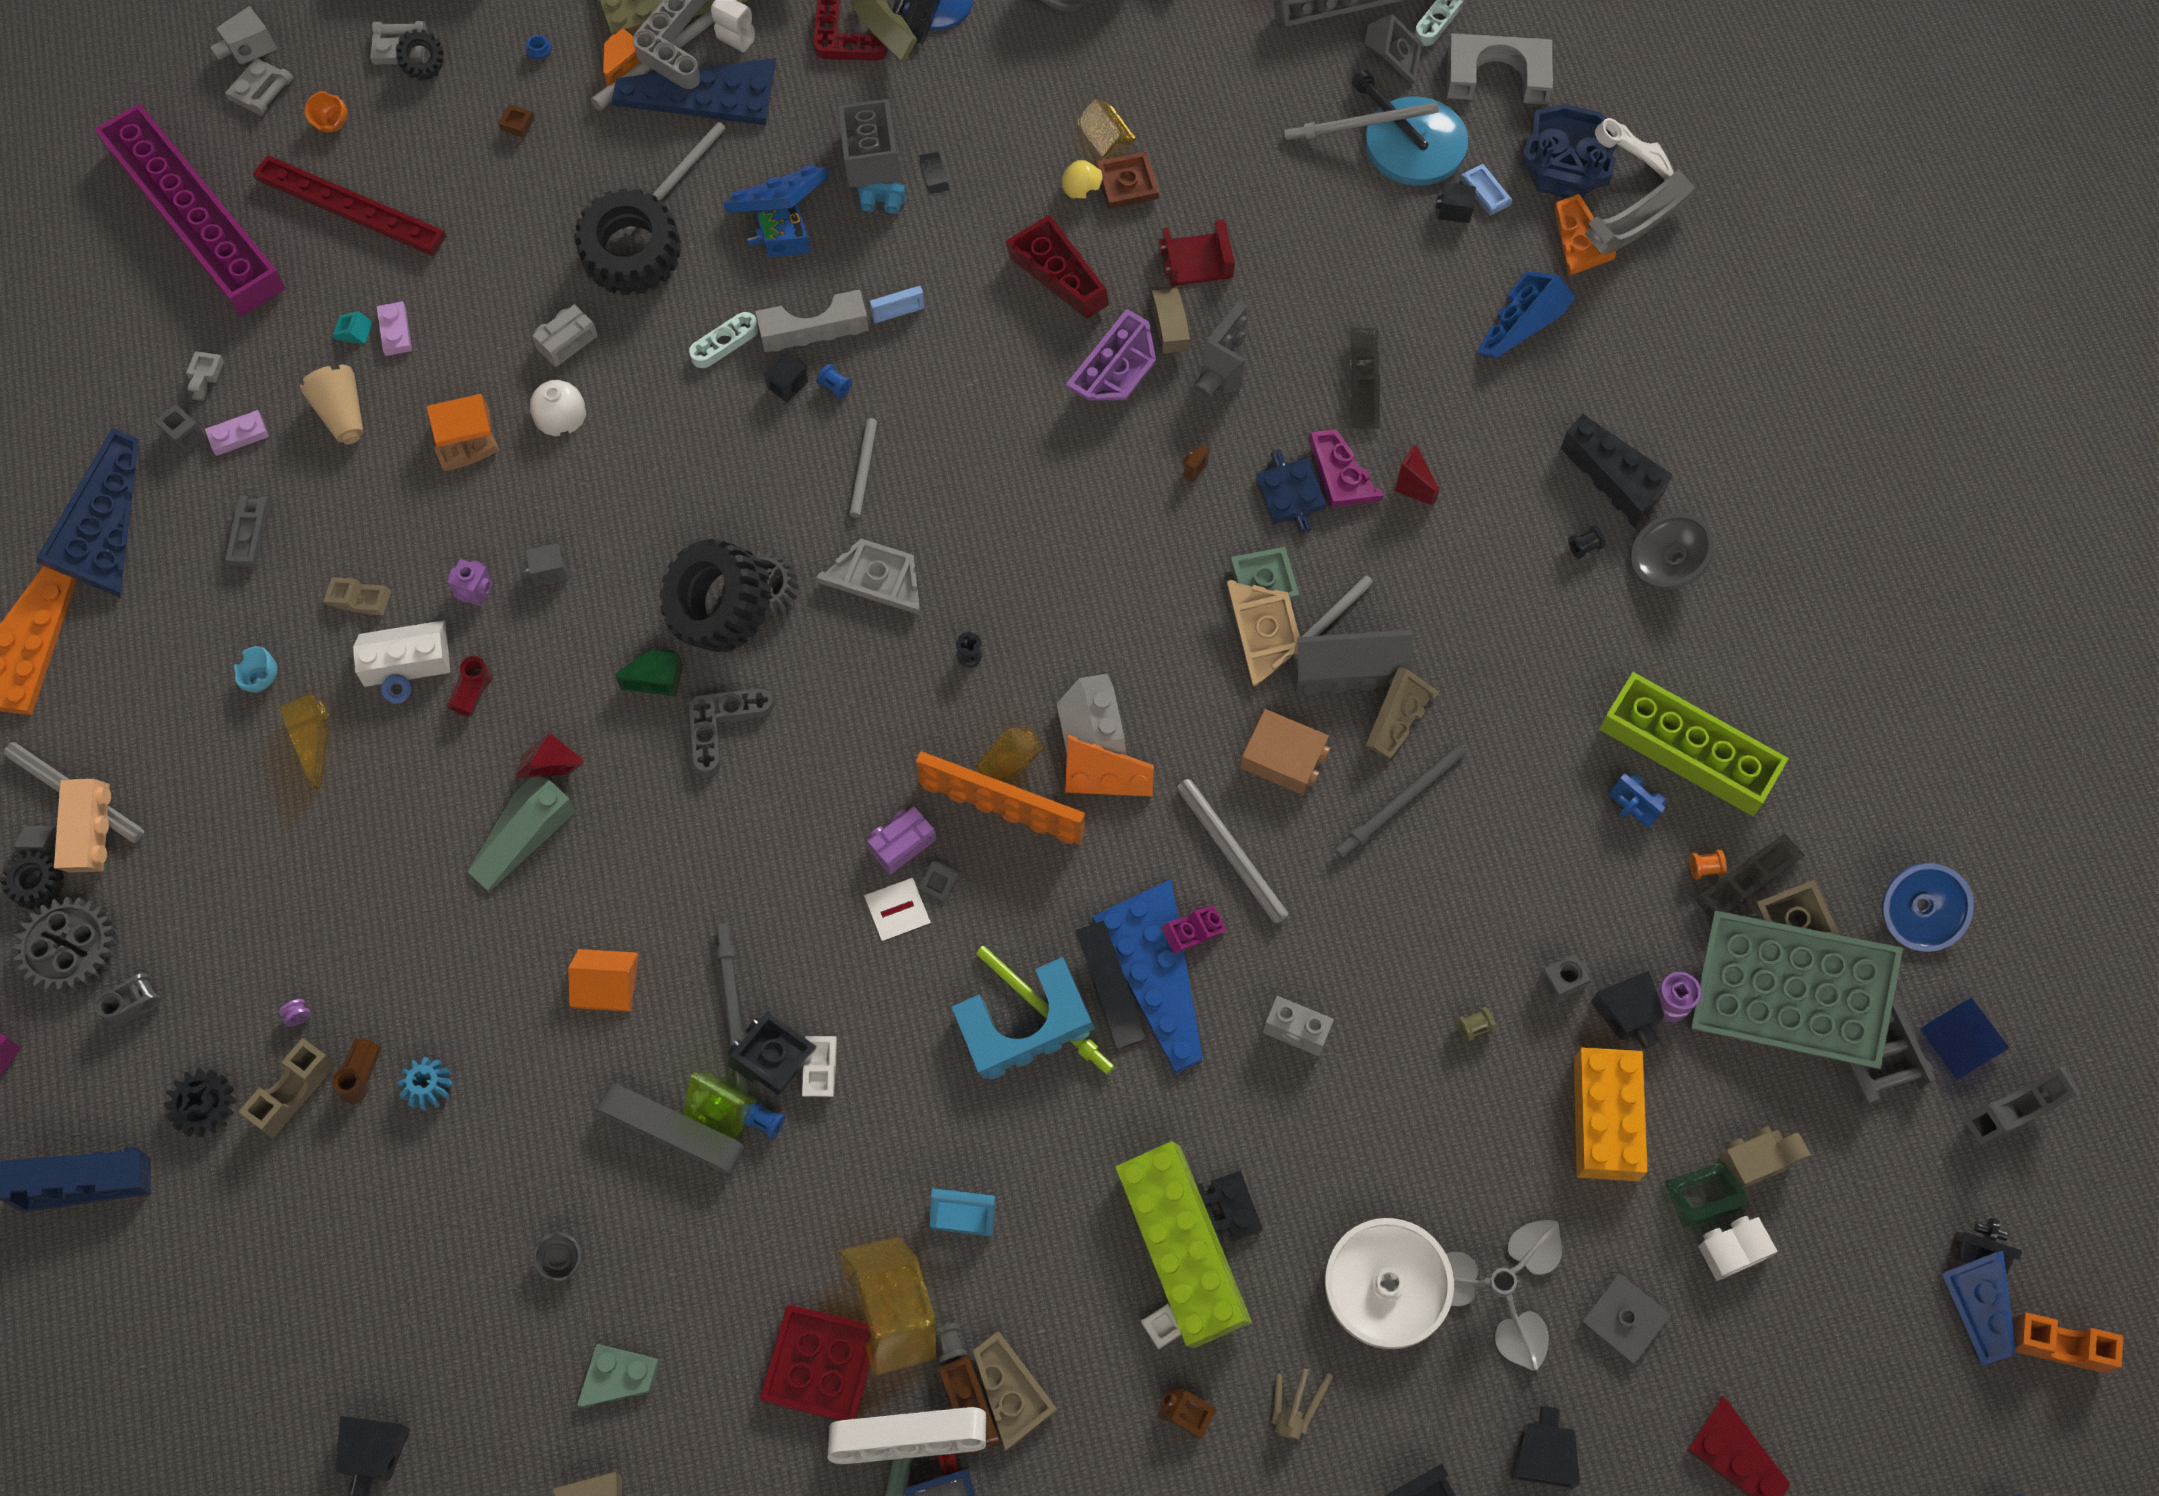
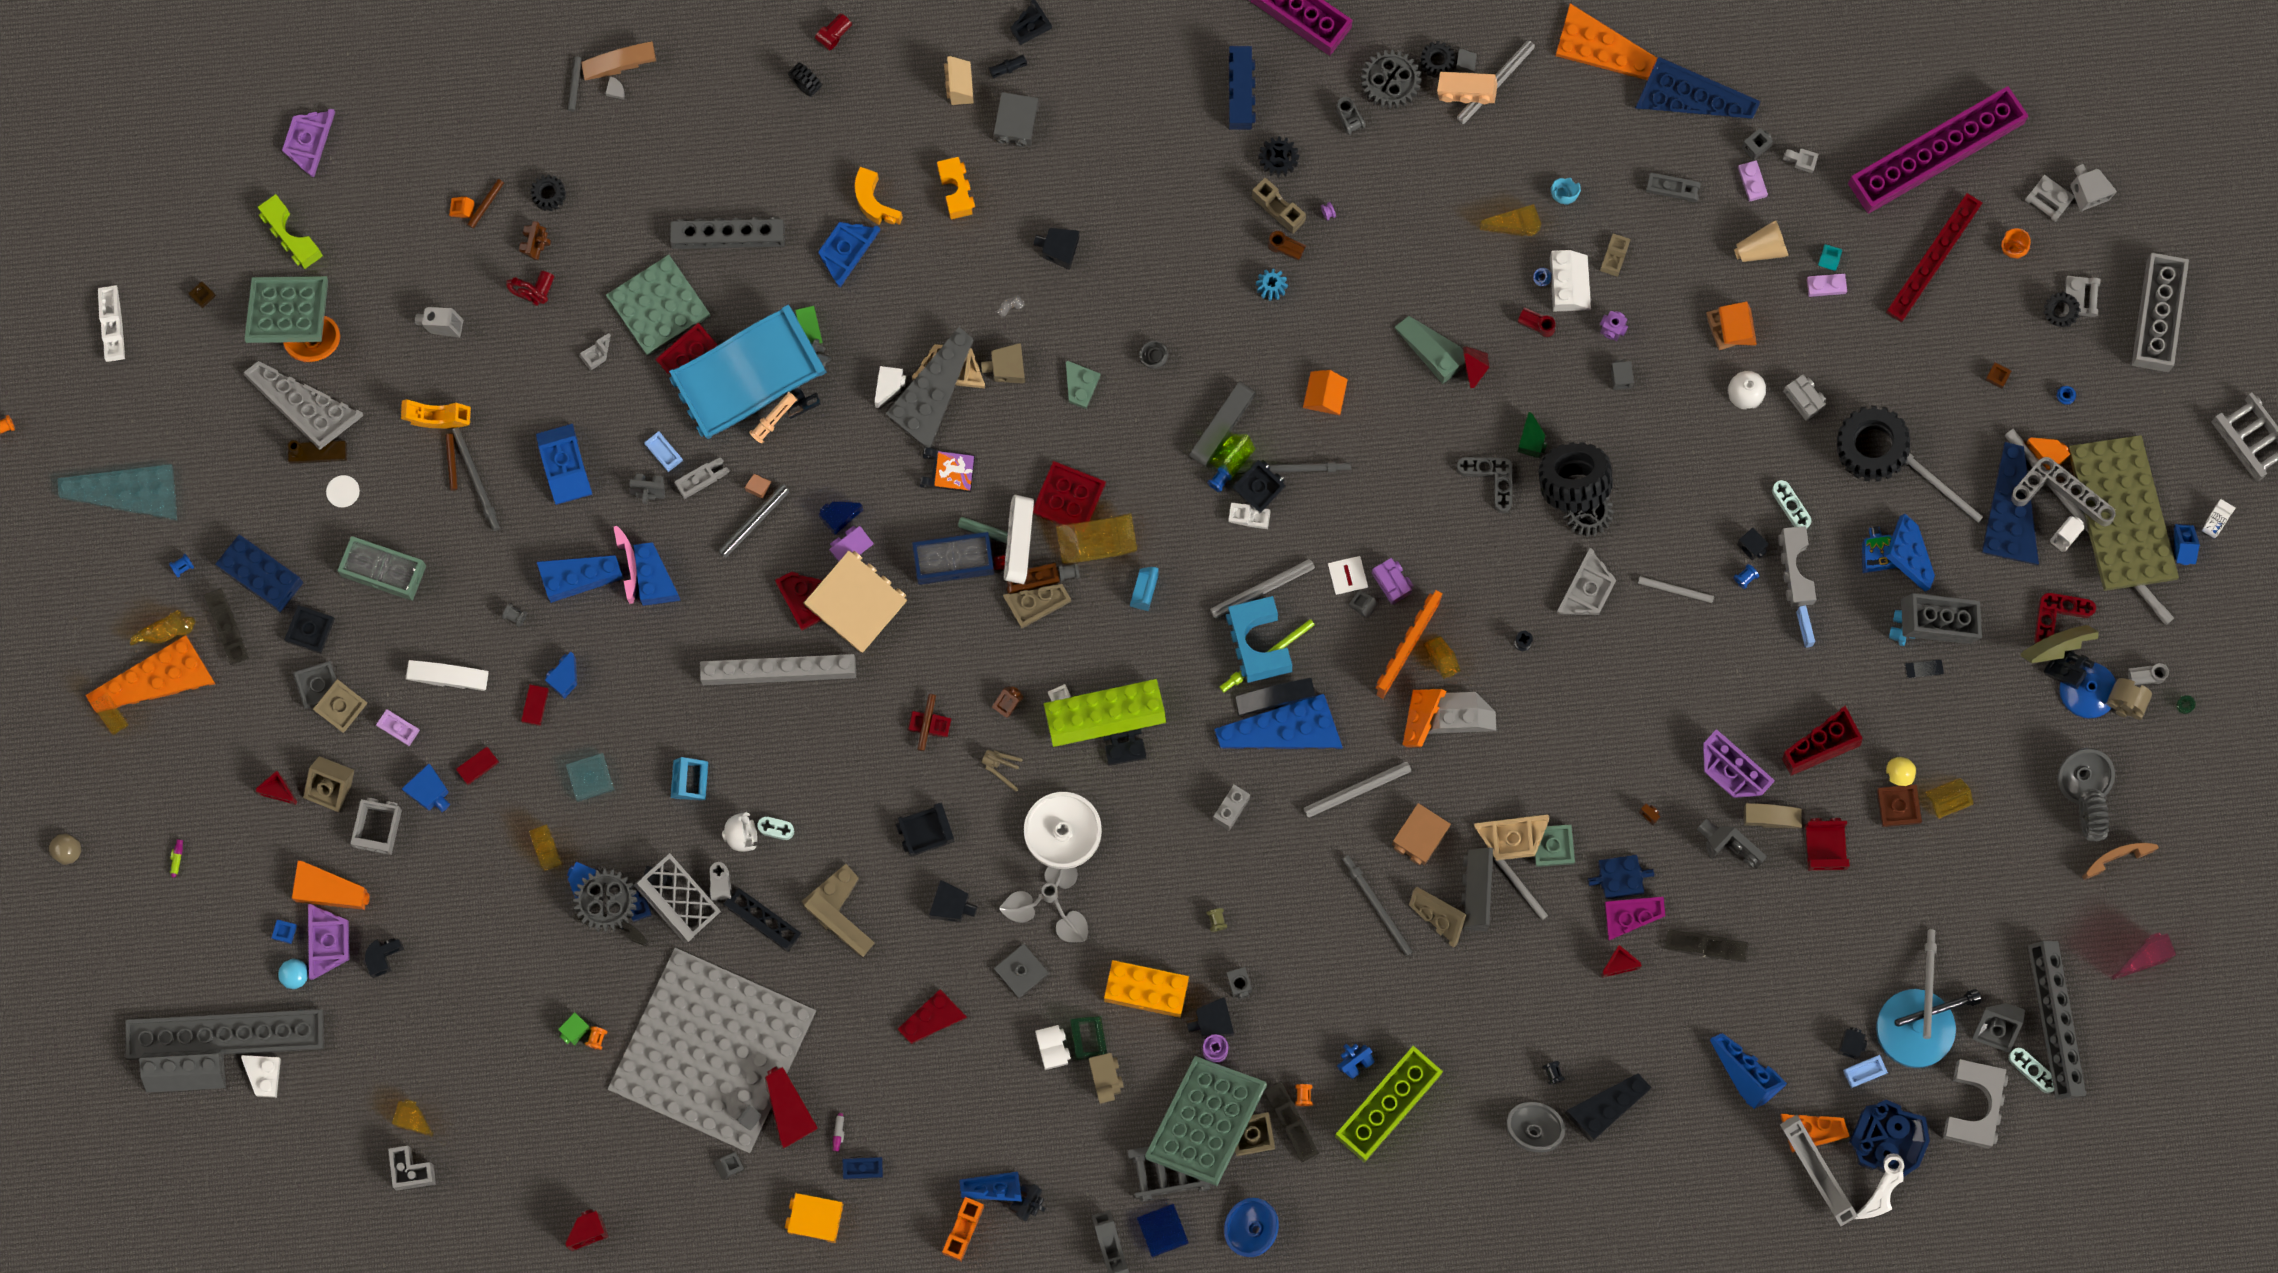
camera: 100 degrees right, 10 degrees up
(937, 1031) = (1263, 587): none -> light grey axle
(1193, 929) = (1305, 755): magenta slope -> none

